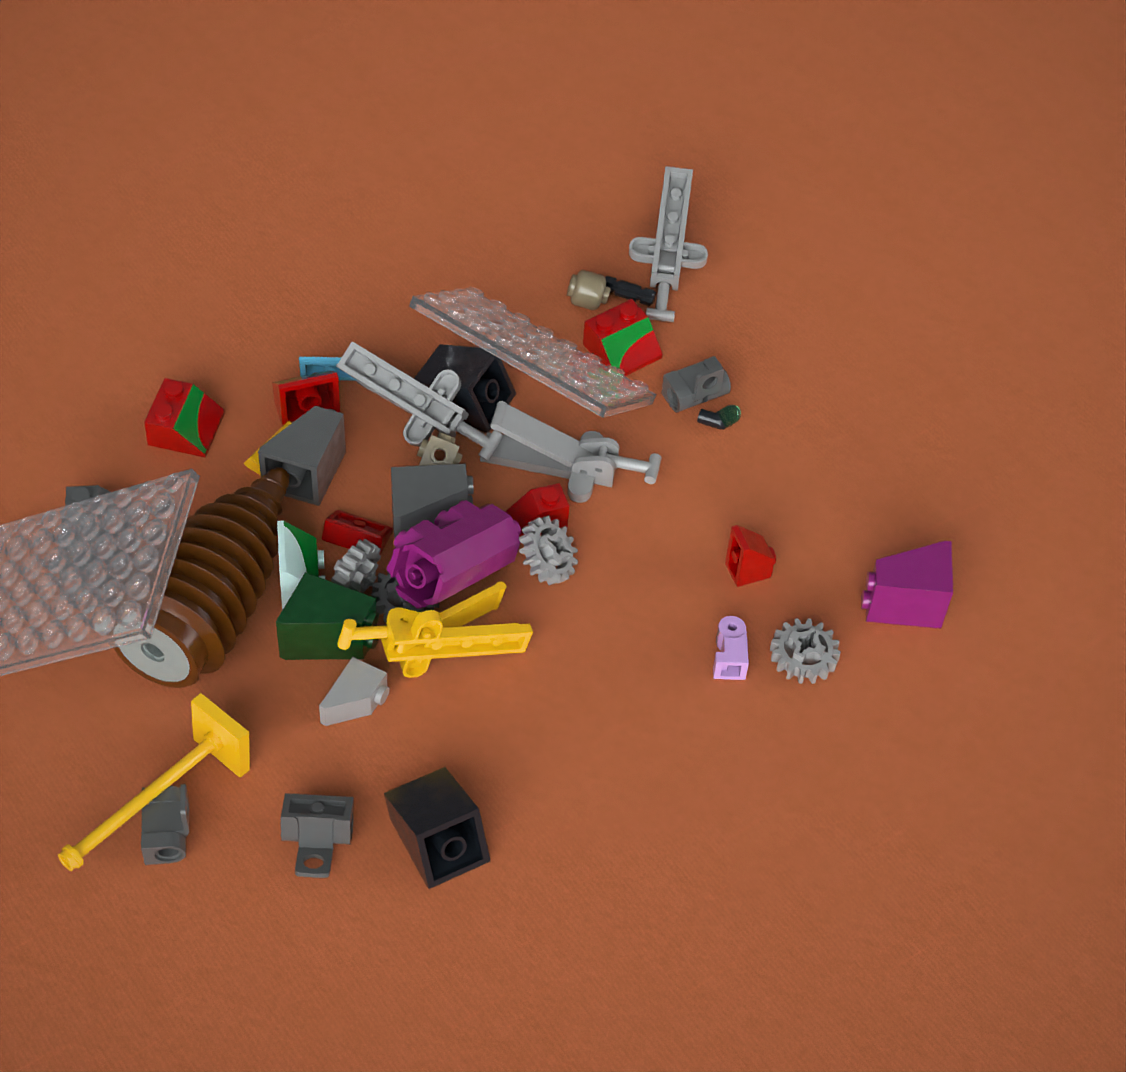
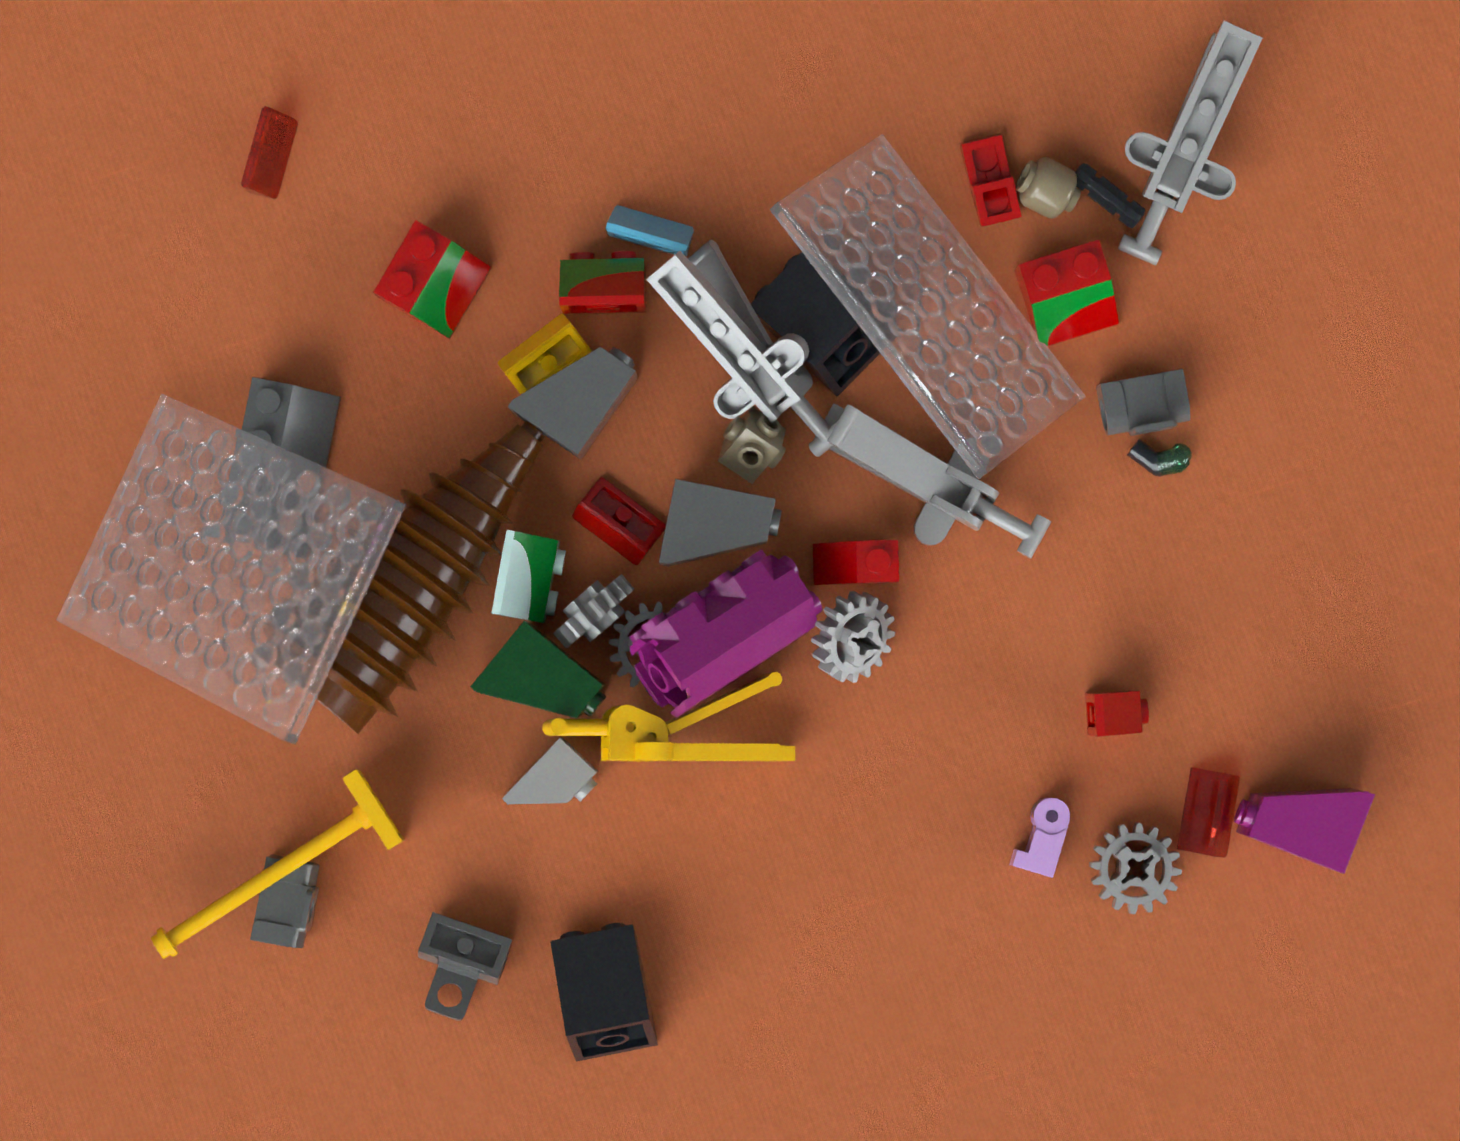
camera: 20 degrees right, 35 degrees up
(51, 377) = (269, 153): none -> clear red slope
(547, 298) = (990, 180): none -> red slope
(841, 610) = (1208, 812): none -> clear red slope

